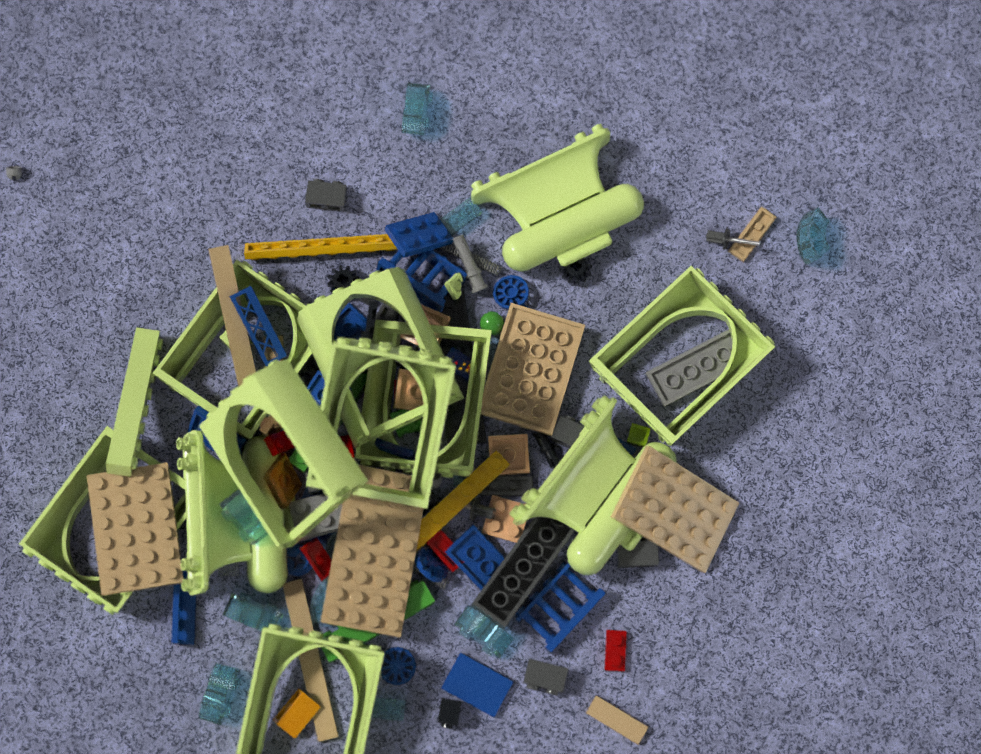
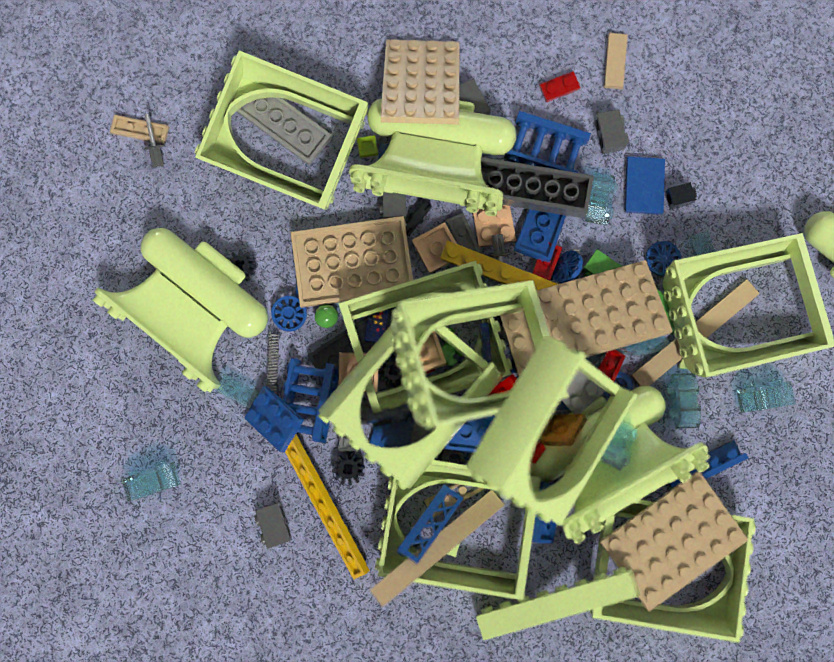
camera: 110 degrees left, 5 degrees up
(296, 713) = (747, 323): light orange panel -> none
(454, 285) = (307, 365): yellowish green tile -> none
(473, 273) = (276, 365): light grey pin -> none
(811, 235) = (119, 74): clear light blue brick -> none

